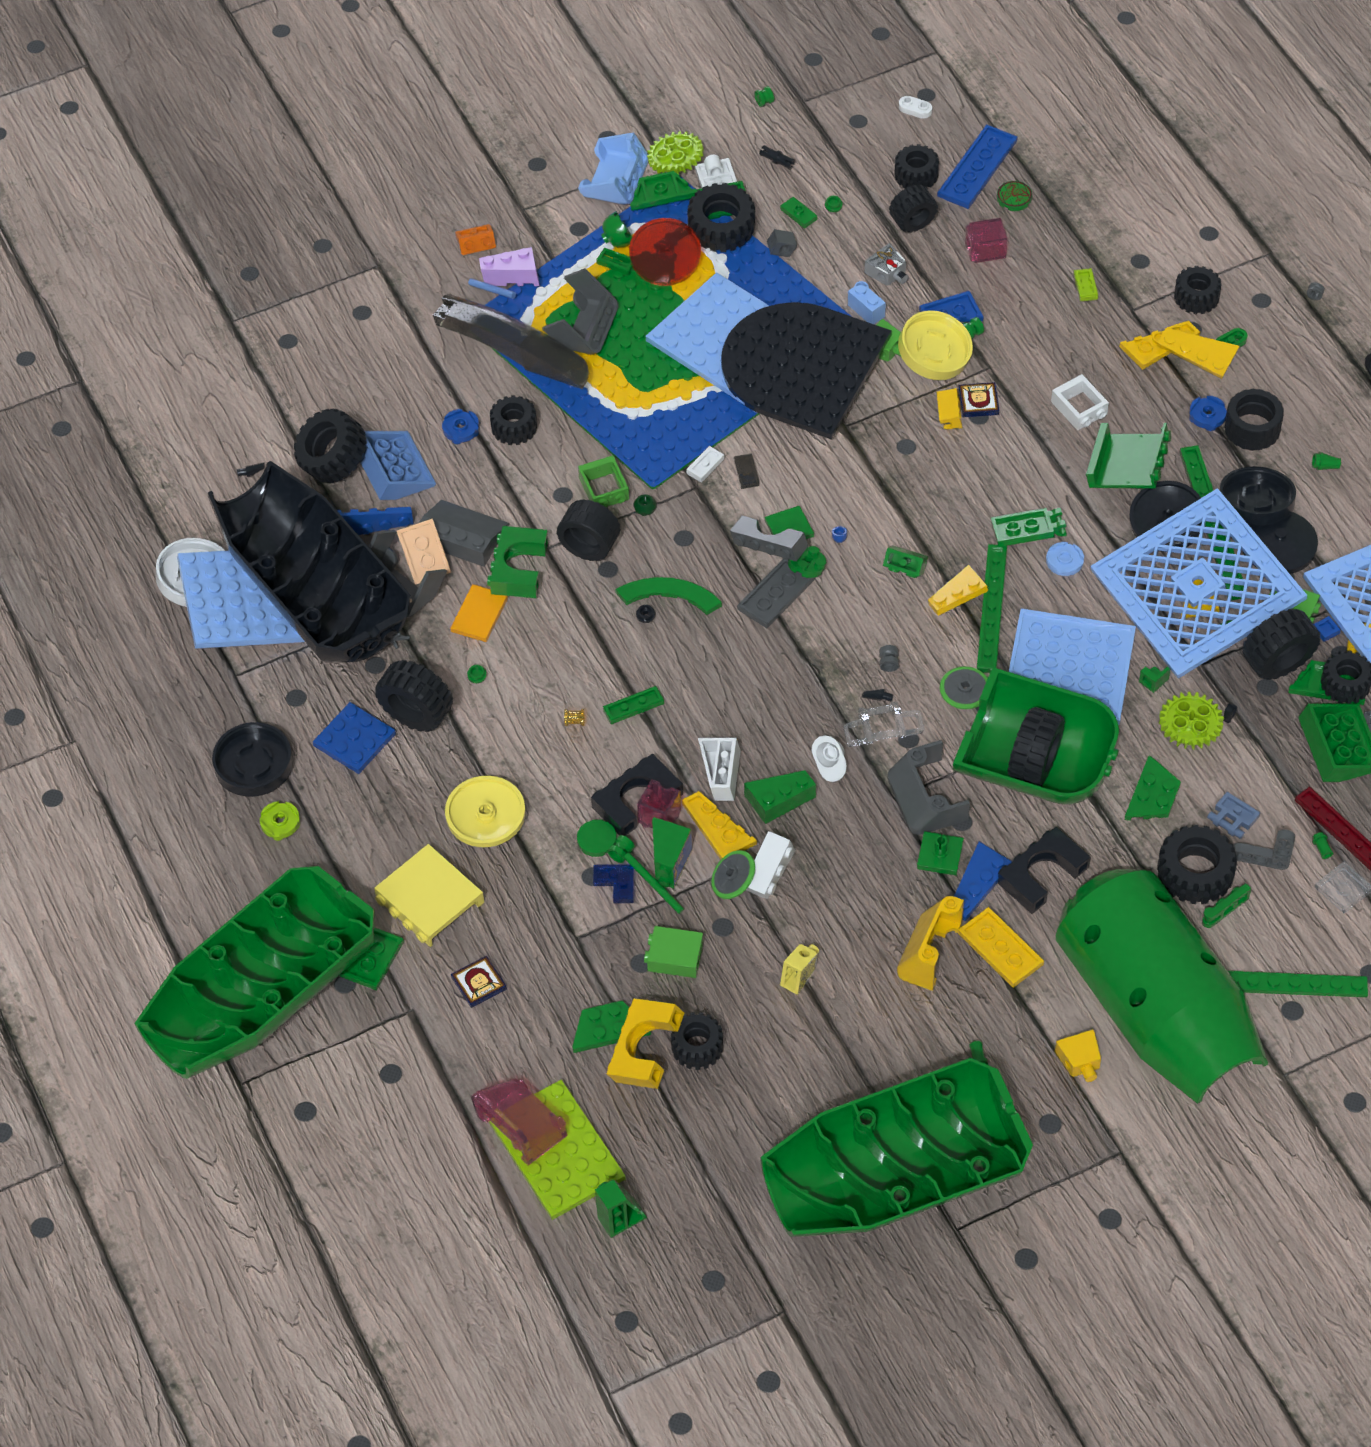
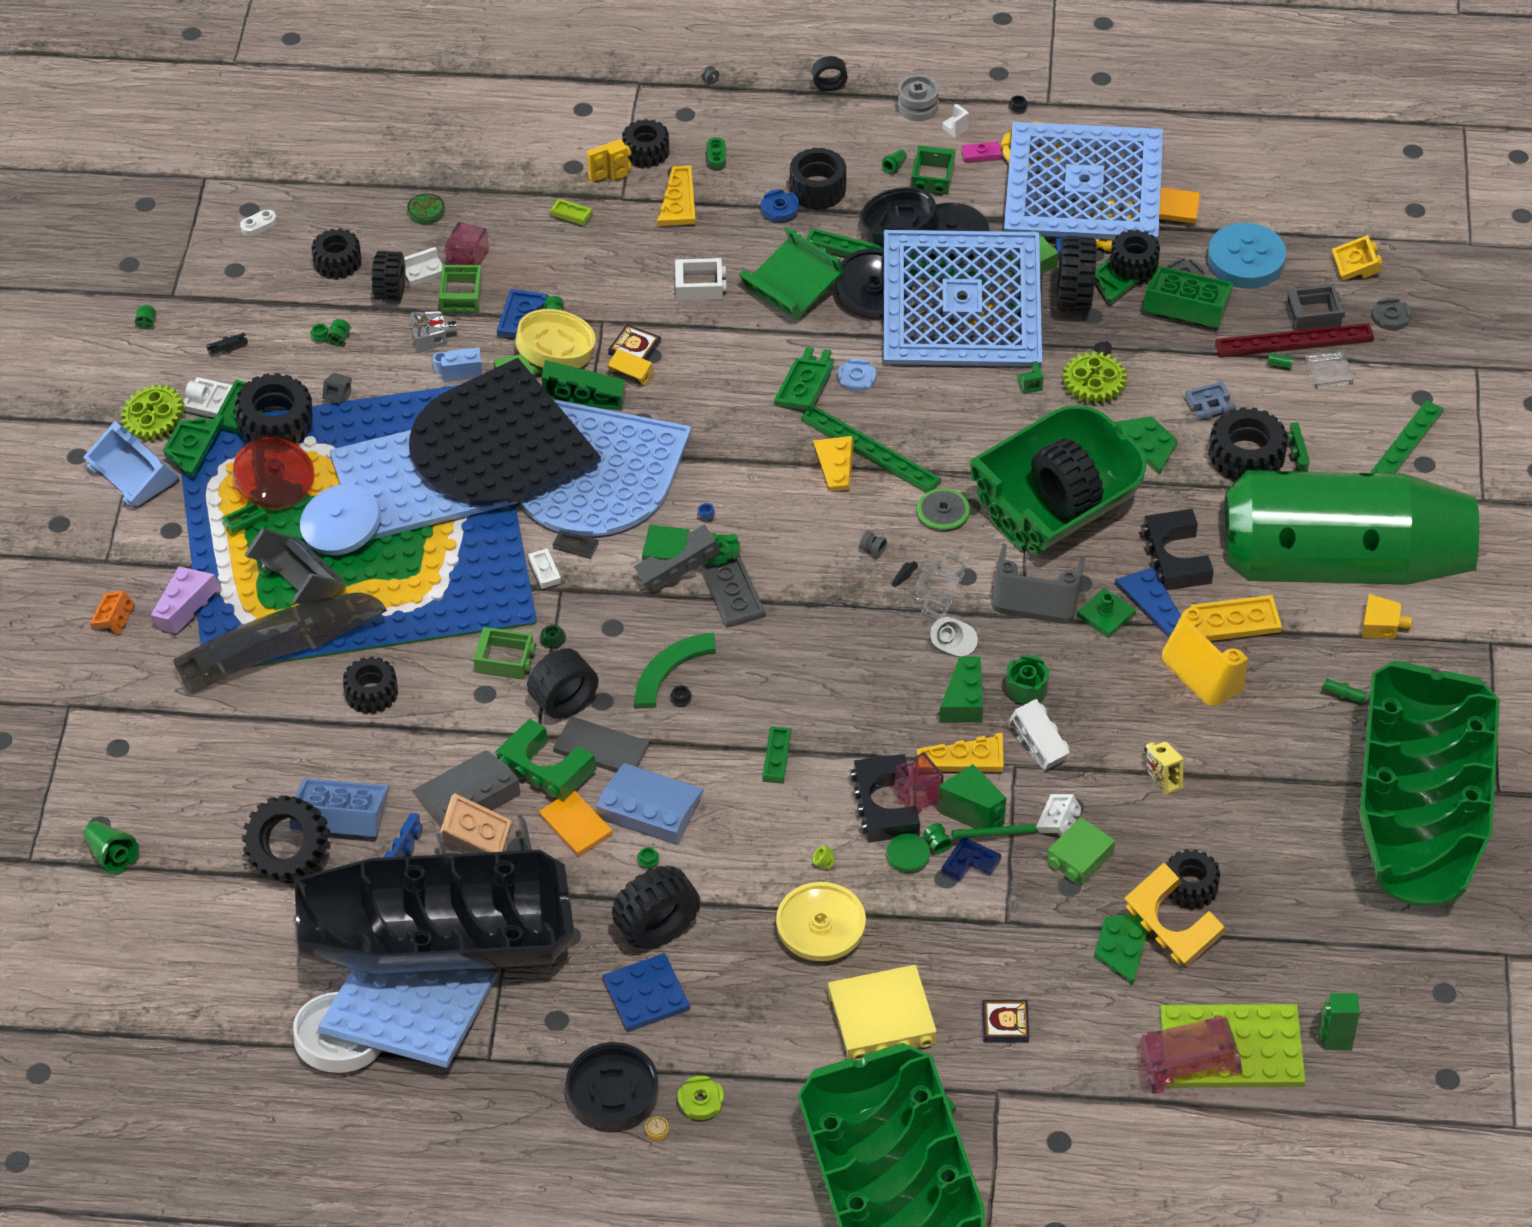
camera: 60 degrees left, 5 degrees down
(237, 807) = (656, 1128): none -> tile
(251, 469) = (241, 929): black bar -> none
(264, 355) = (111, 847): none -> green cone
(463, 434) = (337, 742): blue plate -> none
(491, 288) = (189, 628): medium blue bar -> none
(526, 646) = (648, 803): none -> medium blue slope
(552, 782) = (824, 857): none -> lime tile
(561, 591) = (607, 745): none -> dark grey tile
(574, 717) = (760, 804): clear yellow bush -> none
(616, 231) = (215, 495): green cylinder -> none
(651, 315) = (340, 519): none -> light blue dish
(703, 919) = (1059, 814): none -> white bracket
(721, 765) = (903, 718): white wedge -> none
(733, 874) = (1016, 768): dark grey wheel -> none
(798, 212) = (305, 362): green plate -> none
(820, 830) = (1027, 679): none -> green brick
(840, 213) = (338, 332): none -> green wheel
(857, 462) = (623, 488): none -> light blue plate
(900, 388) = (583, 386): none -> green wedge
(906, 561) = (778, 478): green brick -> none
(935, 274) = (460, 301): none -> bright green window
(949, 226) = (423, 267): none -> white bracket
(977, 166) = (368, 215): blue tile -> none
(1075, 655) = (965, 420): light blue plate -> none
(1153, 276) = (609, 161): none -> yellow plate
(1203, 352) = (714, 174): yellow wing -> none
(1277, 858) = (1277, 386): dark grey beam -> none
(1351, 484) = (926, 156): none -> green window

